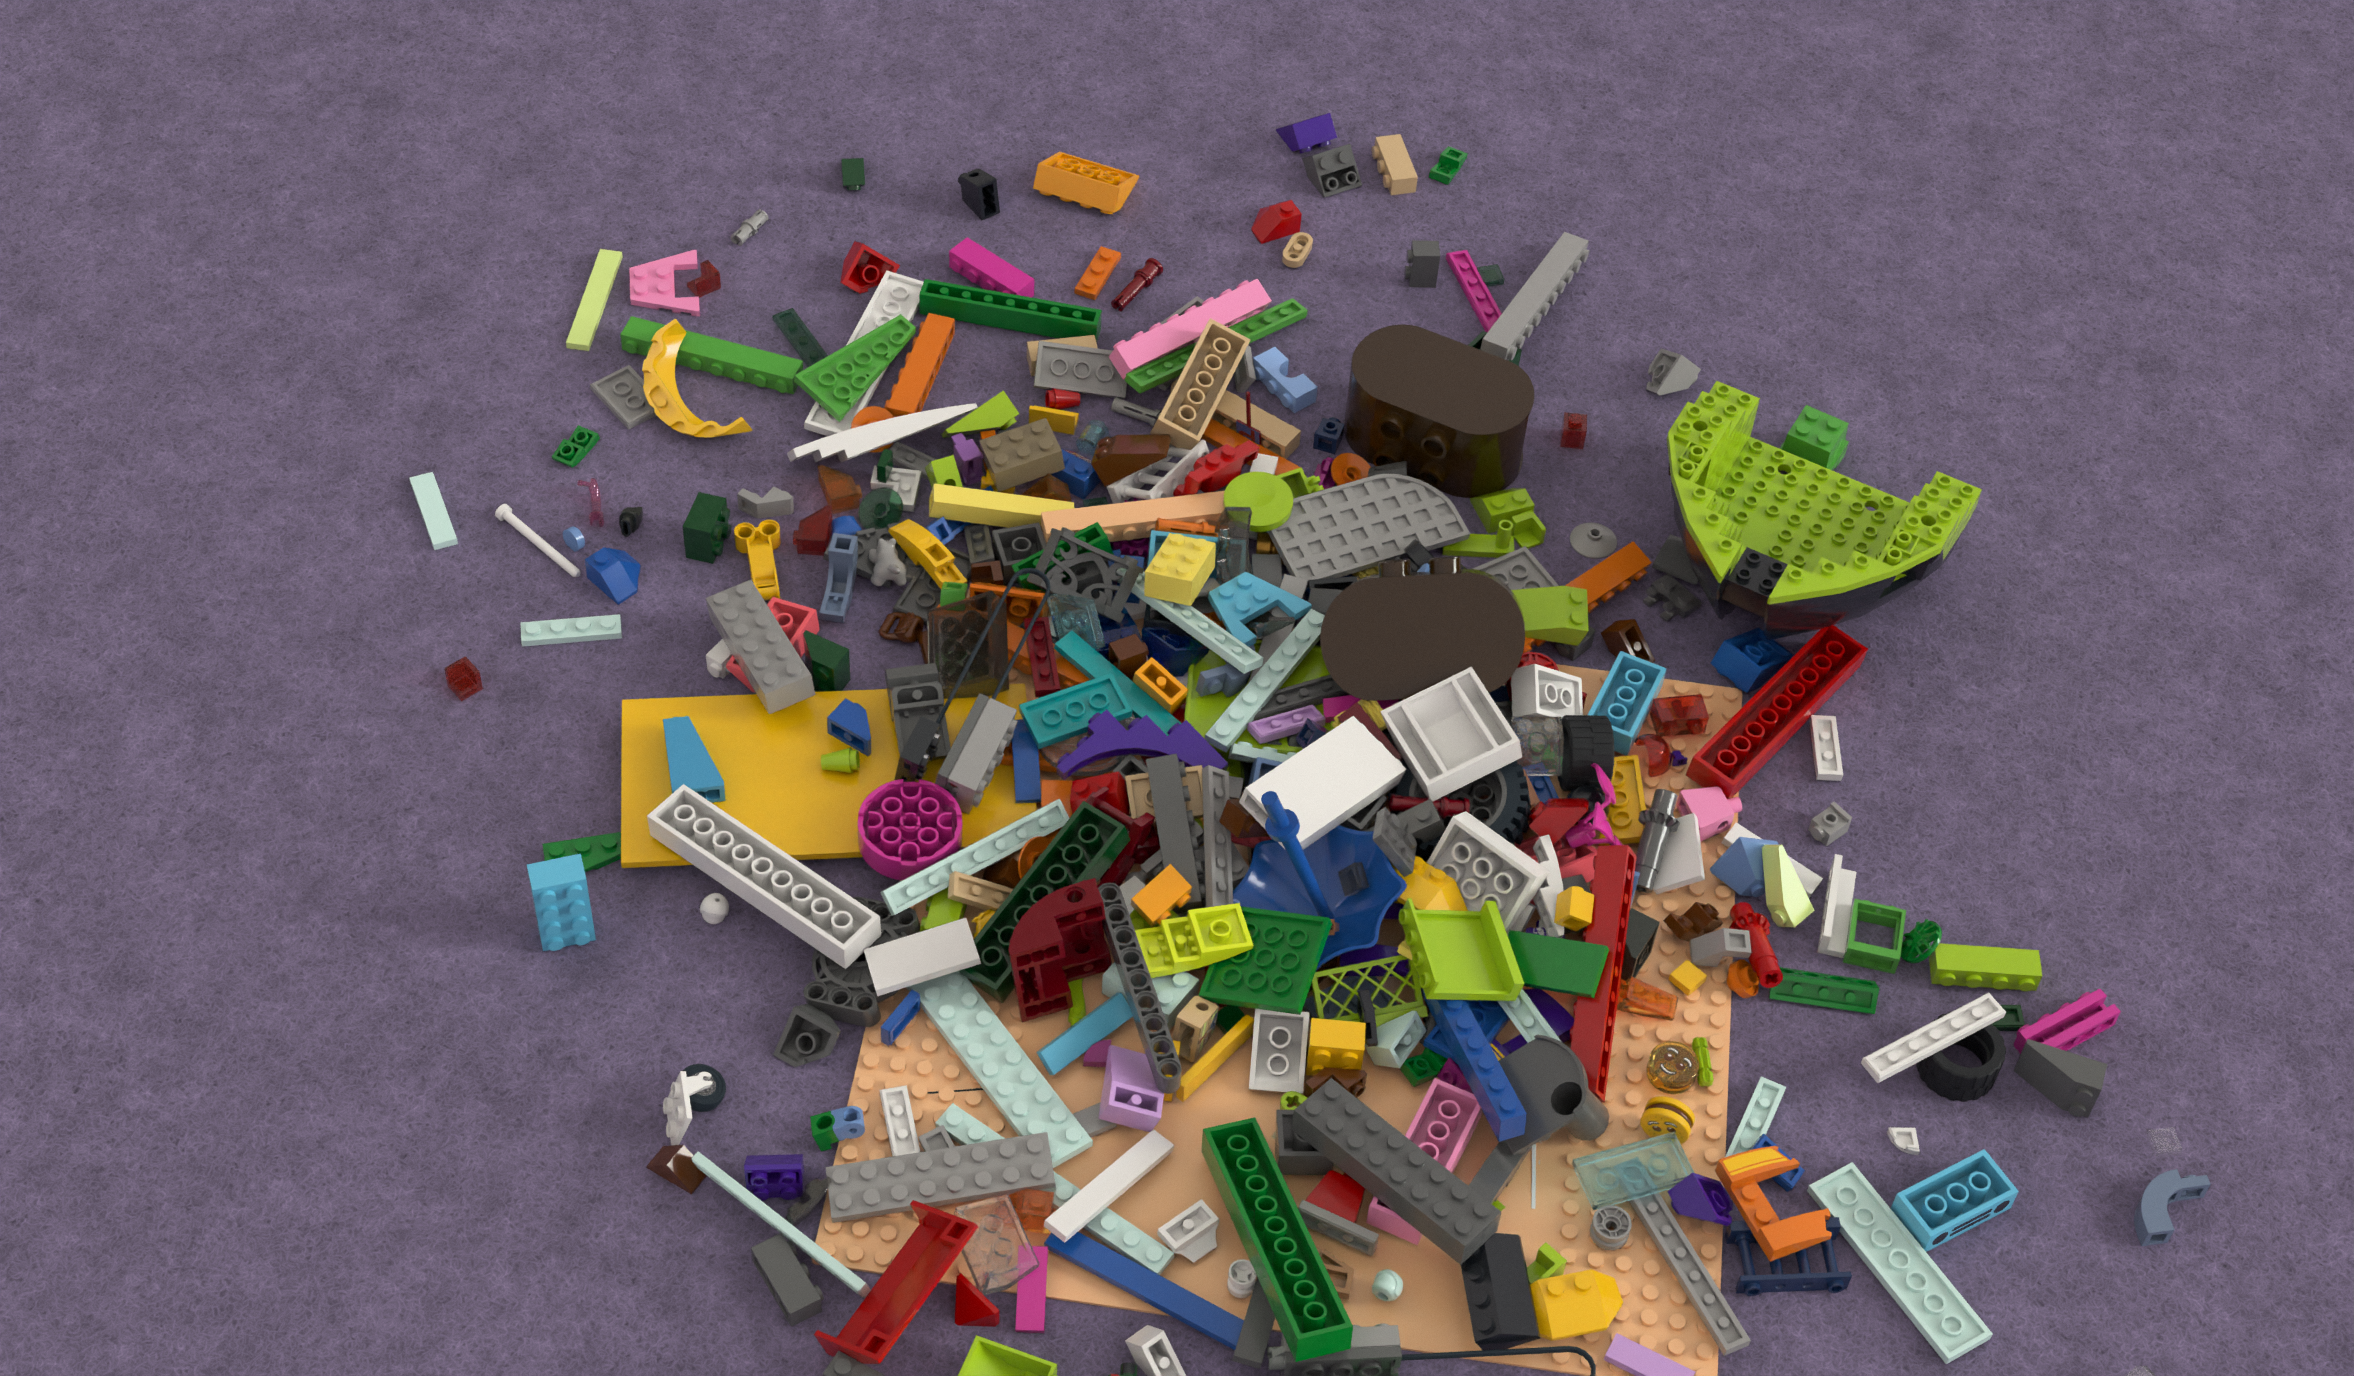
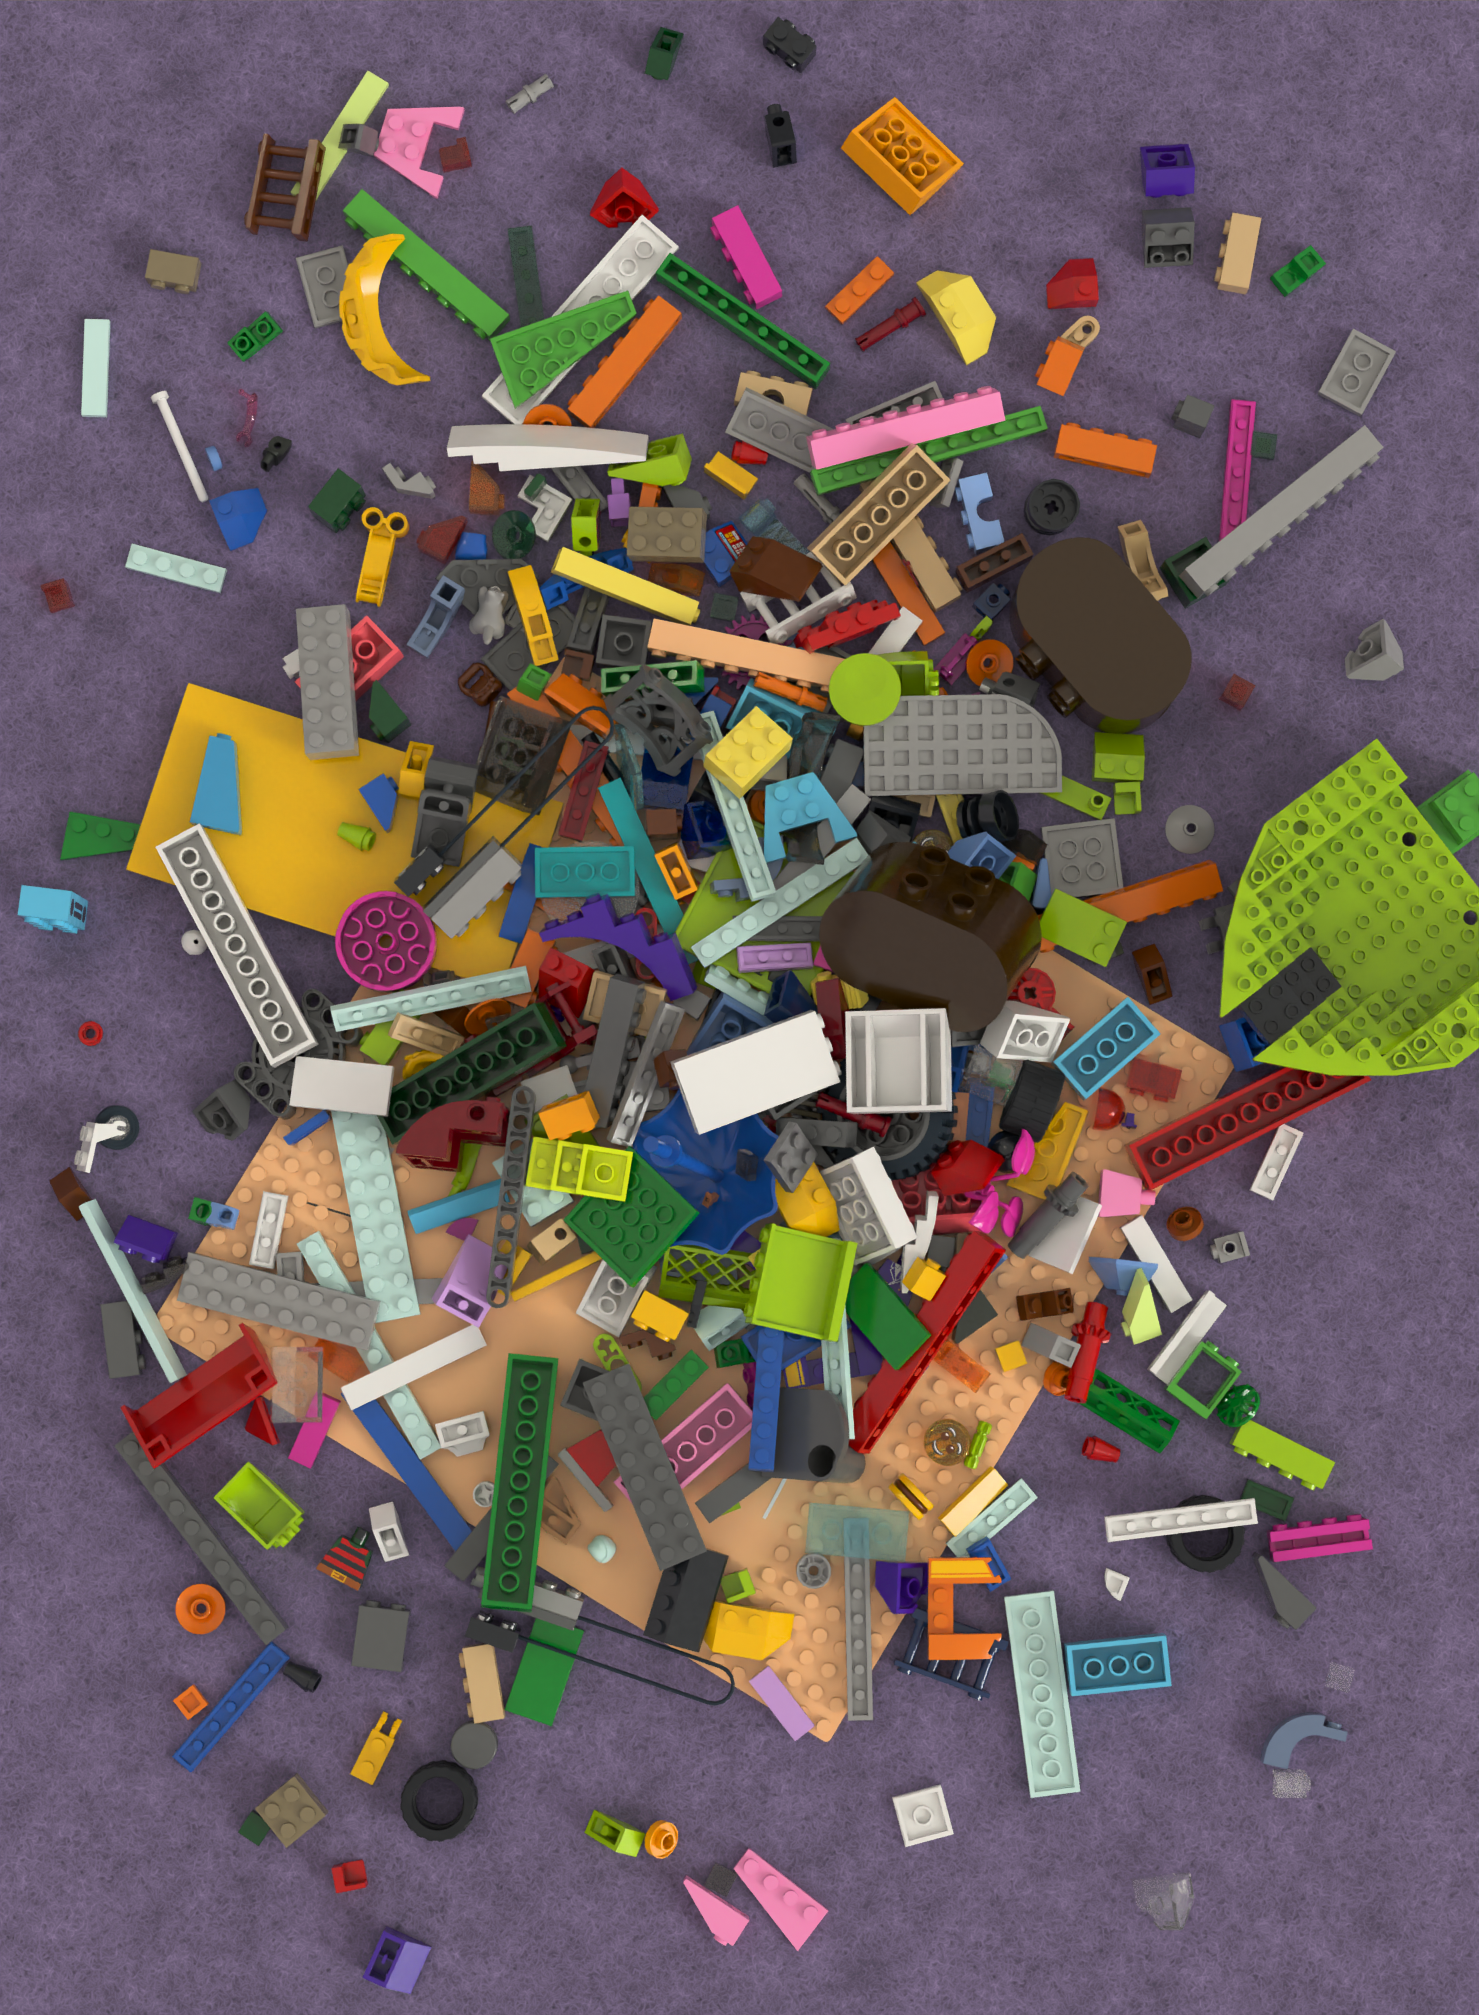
camera: 25 degrees right, 35 degrees up
(480, 421) = (172, 271): none -> dark tan brick
(581, 339) = (303, 202): none -> reddish brown fence
(613, 285) = (359, 139): none -> dark grey slope
(638, 1014) = (82, 1033): none -> red plate
(874, 695) = (414, 768): none -> yellow slope
(957, 138) = (789, 44): none -> black brick
(1191, 262) = (960, 311): none -> light yellow wedge
(1294, 265) = (1059, 366): none -> orange brick
(1317, 403) = (994, 563): none -> reddish brown brick
(1332, 449) = (982, 628): none -> lime tile
(1337, 351) = (1064, 501): none -> black wheel
(1364, 311) = (1105, 450): none -> orange brick
(1387, 1093) = (674, 1384): none -> green brick
(1535, 209) = (1356, 372): none -> light grey plate
(1727, 1113) = (973, 1501): none -> yellow tile
(1778, 818) = (1185, 1223): none -> dark orange plate
(1817, 1028) = (1100, 1450): none -> red cone
(2184, 1246) = (1290, 1783): none -> clear brick

